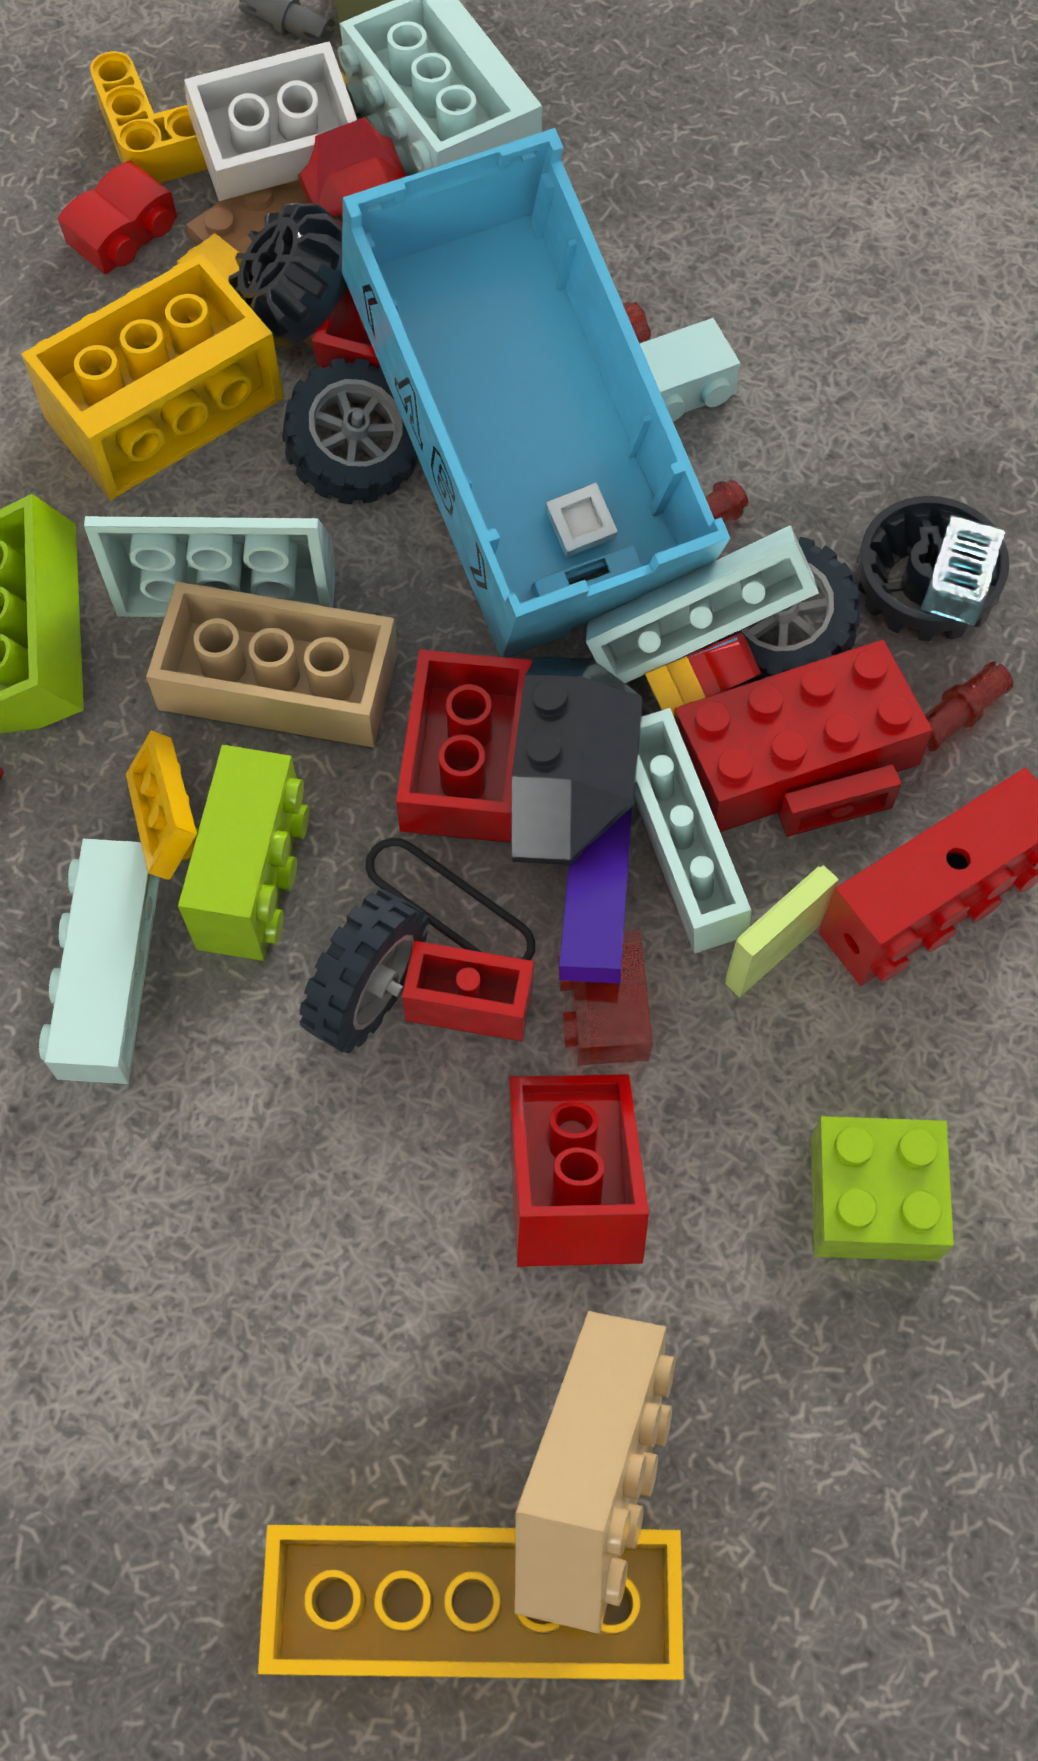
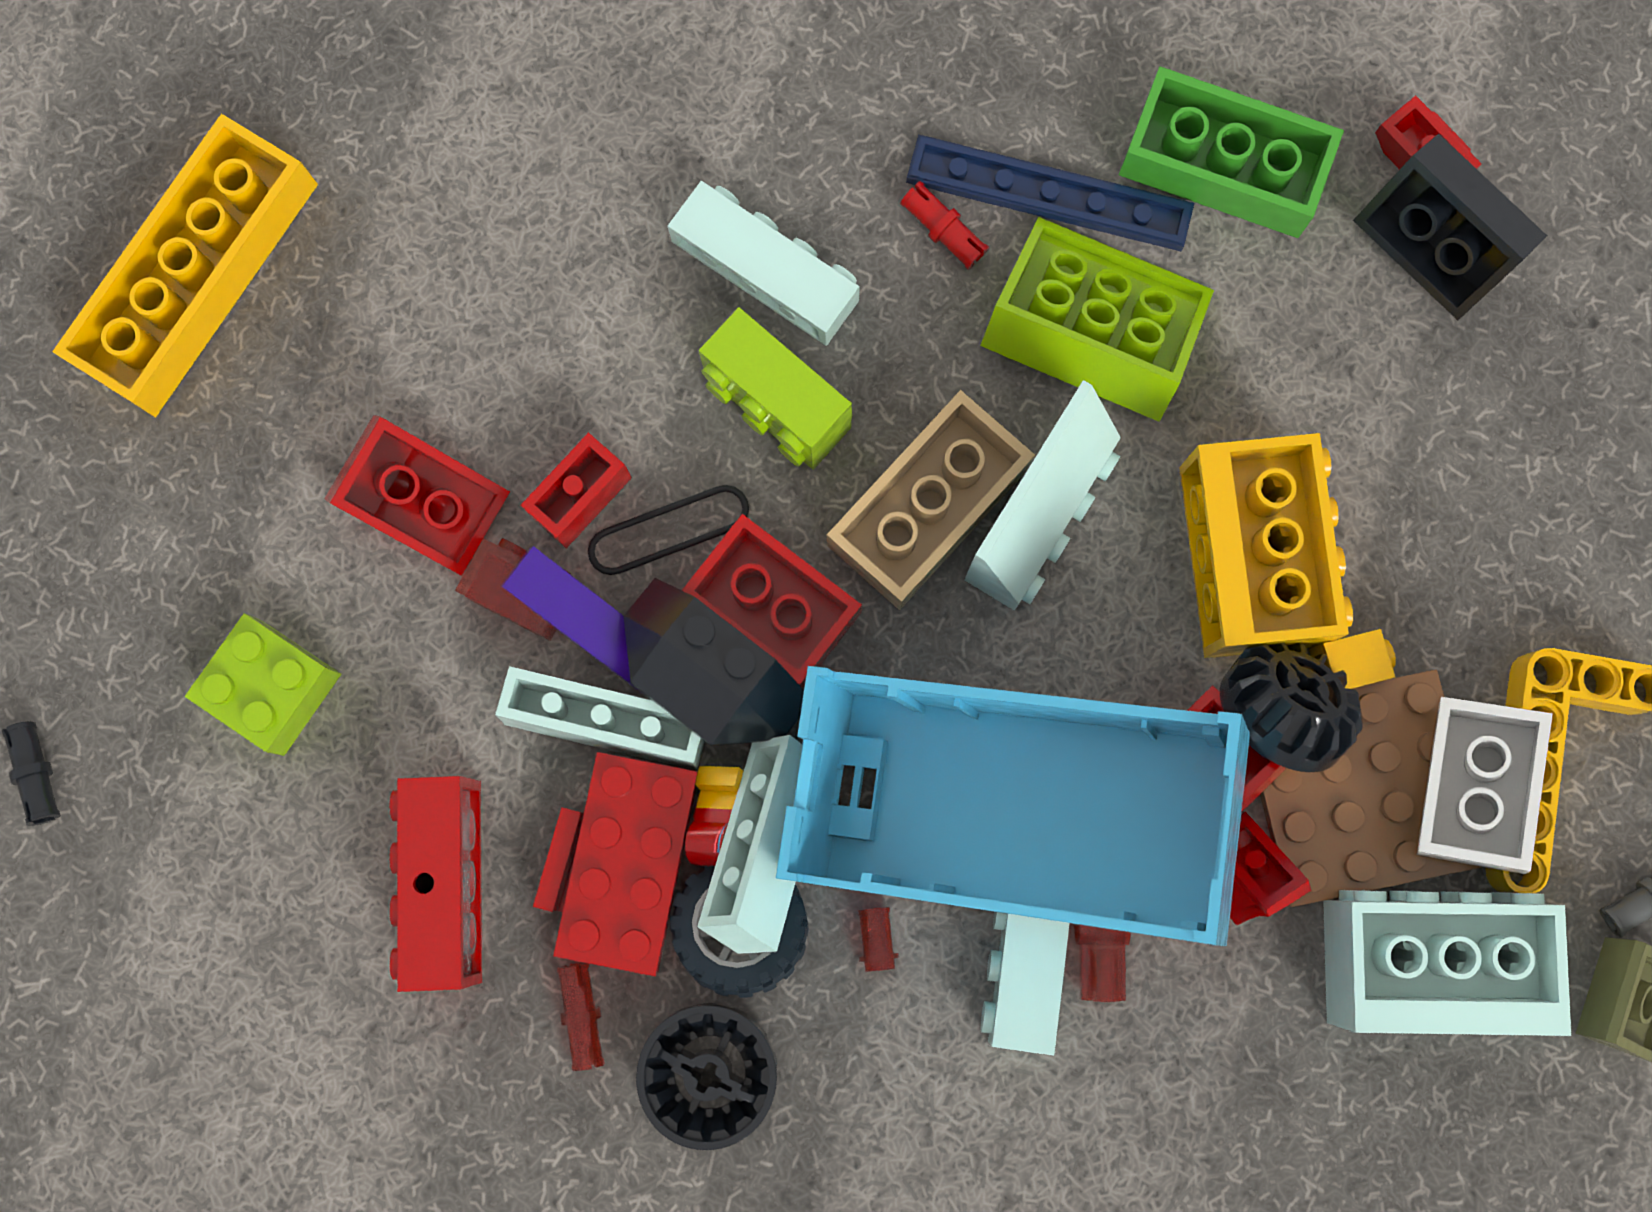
camera: 125 degrees right, 15 degrees up
(117, 217) = (1474, 614): red brick -> none
(161, 806) = (850, 351): yellow plate -> none
(332, 474) = (1117, 633): black wheel -> none
(348, 163) = (1387, 829): red slope -> none
(362, 971) = (625, 419): black wheel -> none
(581, 520) = (909, 805): white plate -> none
(591, 1472) = (190, 361): tan brick -> none
(780, 930) = (475, 733): yellowish green tile -> none
(953, 600) = (661, 1102): clear light blue slope -> none

